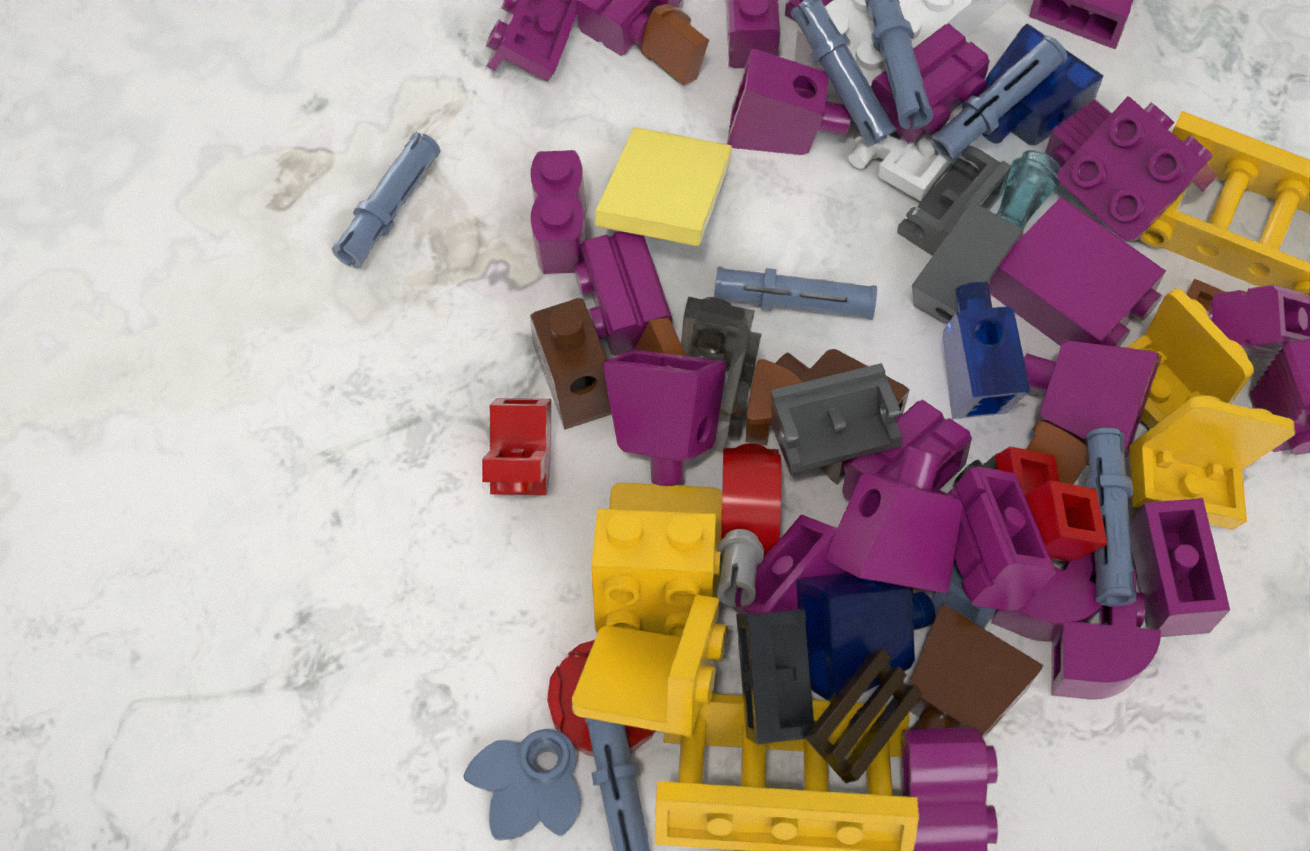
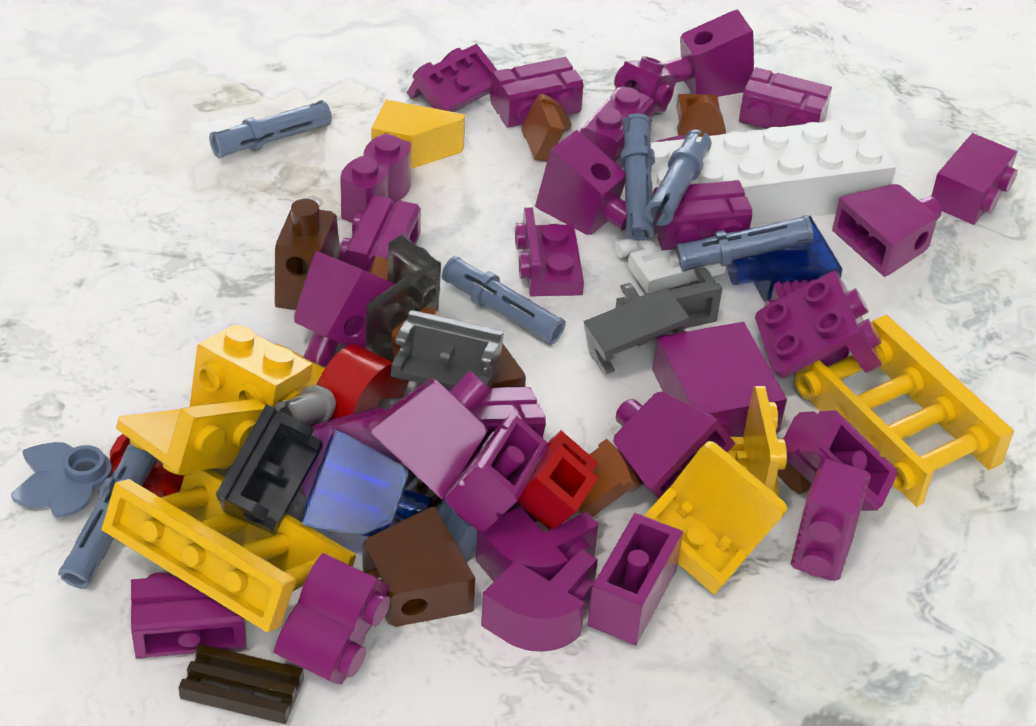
camera: 25 degrees right, 20 degrees down
(519, 447) = (230, 289): red brick -> none
(547, 120) = (430, 131): none -> yellow slope
(664, 186) = (459, 195): light yellow tile -> none
(797, 210) = (548, 257): none -> magenta bracket
(875, 739) = (351, 520): dark brown tile -> none
(983, 356) = (593, 382): clear blue torso -> none
(1028, 186) = (734, 309): clear light blue cone -> none
(1113, 489) = (612, 497): sand blue pin -> none

